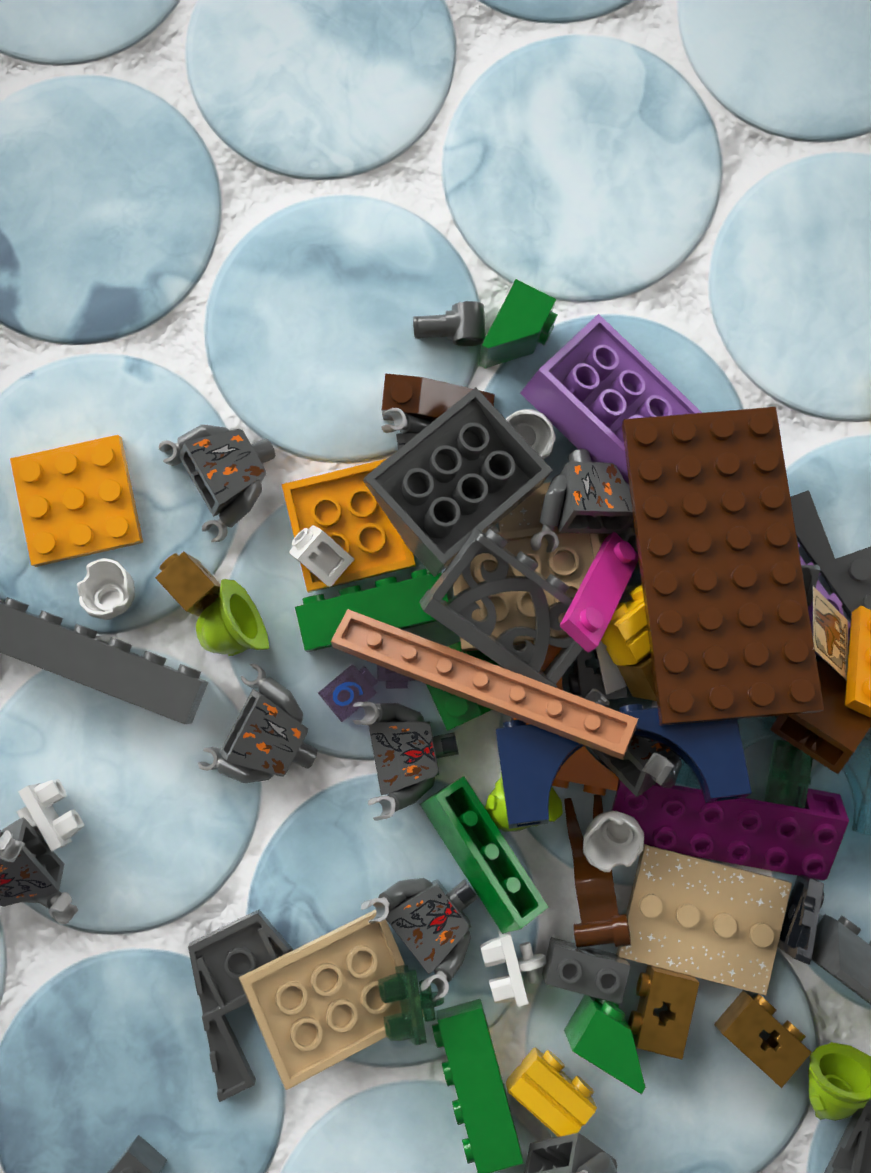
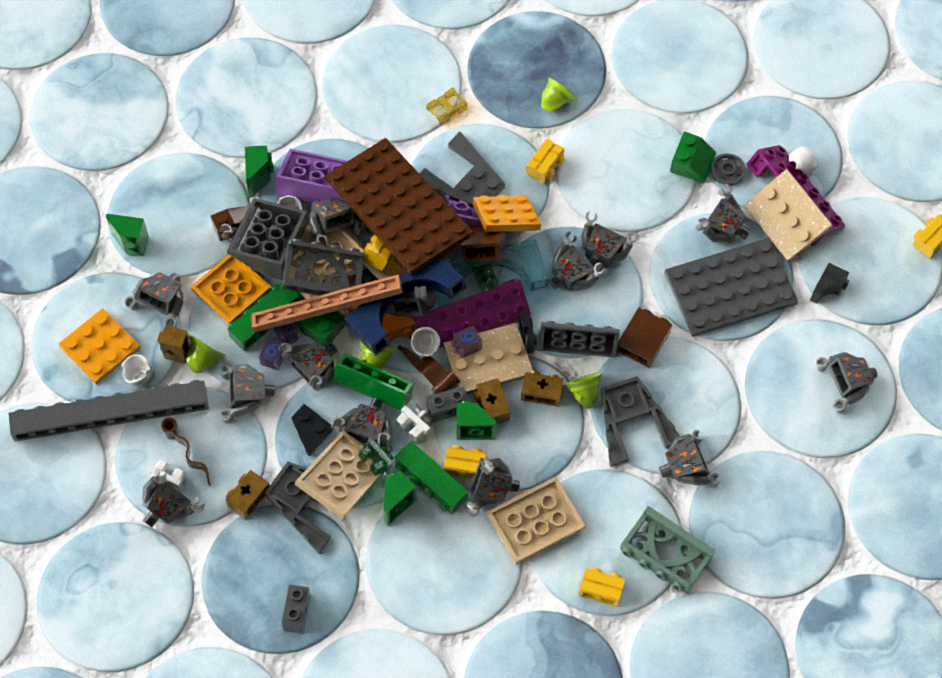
camera: 30 degrees left, 20 degrees down
(92, 741) = (170, 428): none -> reddish brown flag
(144, 943) = (246, 504): none -> pearl gold brick
(232, 328) = (129, 233): none -> green slope
(320, 554) = (226, 301): white bracket -> none
(334, 864) = (311, 428): none -> black wing
(398, 1099) = (398, 496): none -> green slope
(462, 324) = (231, 182): dark grey pin -> none
(600, 592) = (355, 241): dark pink plate -> none
(685, 879) = (466, 342): none -> brick
(830, 633) = (463, 209): sticker -> none

